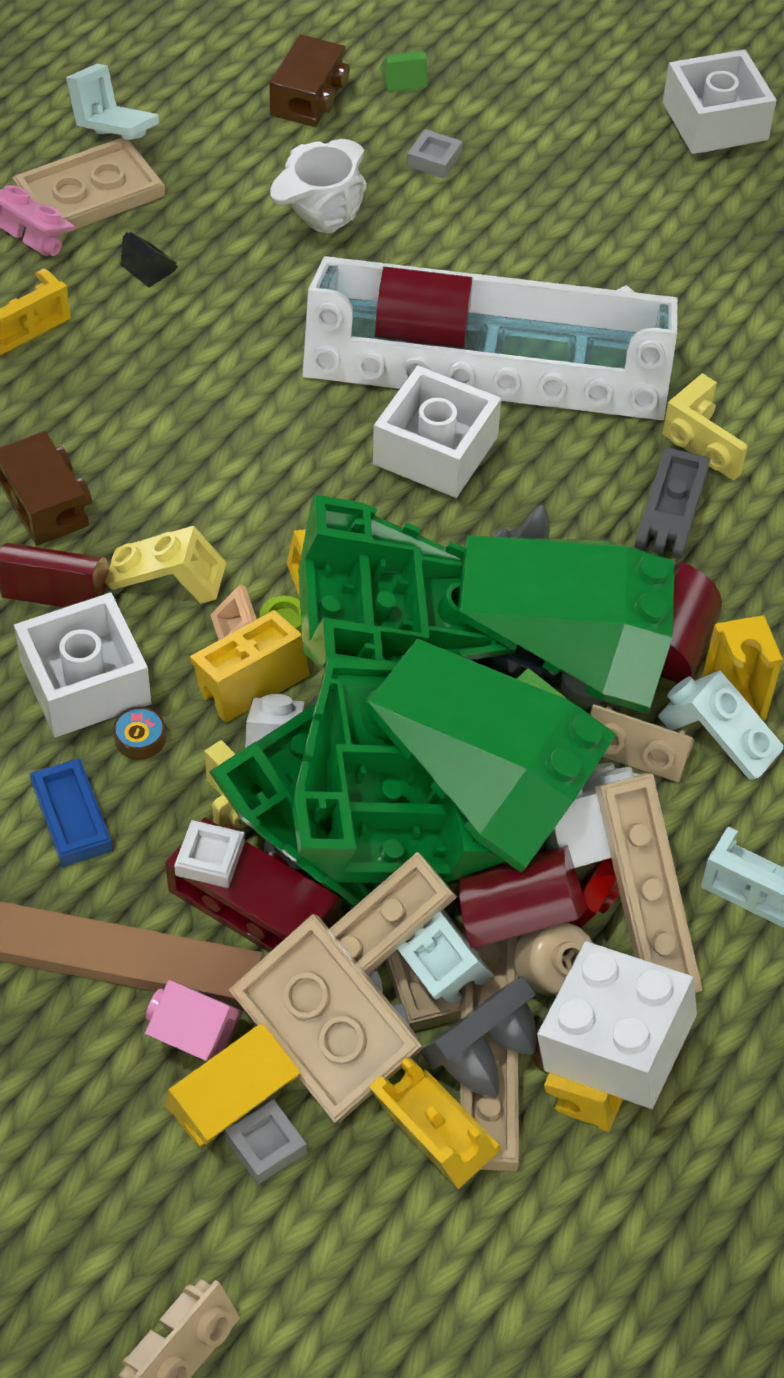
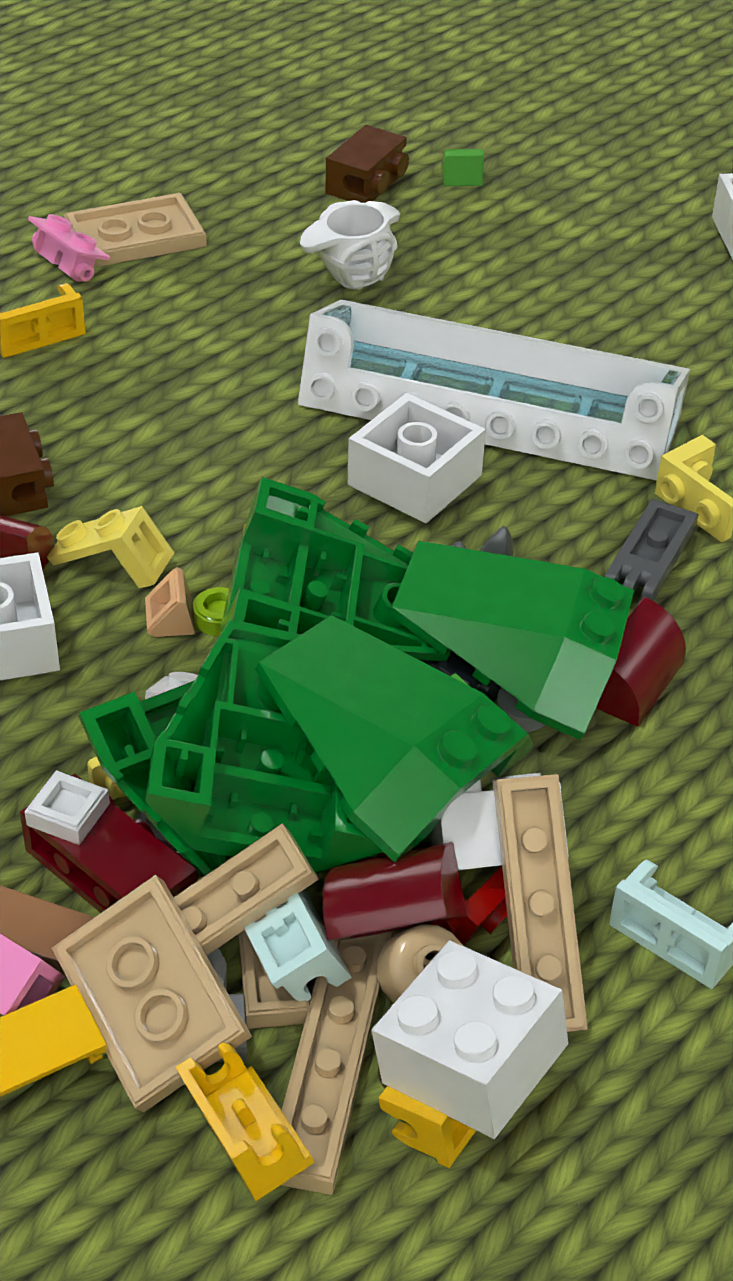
camera: 10 degrees right, 10 degrees down
(96, 105) = (159, 166): light aqua bracket -> none
(139, 733) = (39, 695): tile -> none
(145, 260) = (169, 291): black slope -> none
(250, 664) = (164, 641): yellow hinge -> none
(266, 1142) = (53, 1118): light grey tile -> none
(423, 307) = (429, 349): dark red brick -> none
(434, 153) = (476, 236): light grey tile -> none
(466, 1050) = (296, 1044): dark grey tile -> none
(645, 744) = (583, 775): tan hinge -> none
(726, 718) = (668, 757): light aqua bracket -> none
(747, 658) = (691, 704): yellow hinge -> none

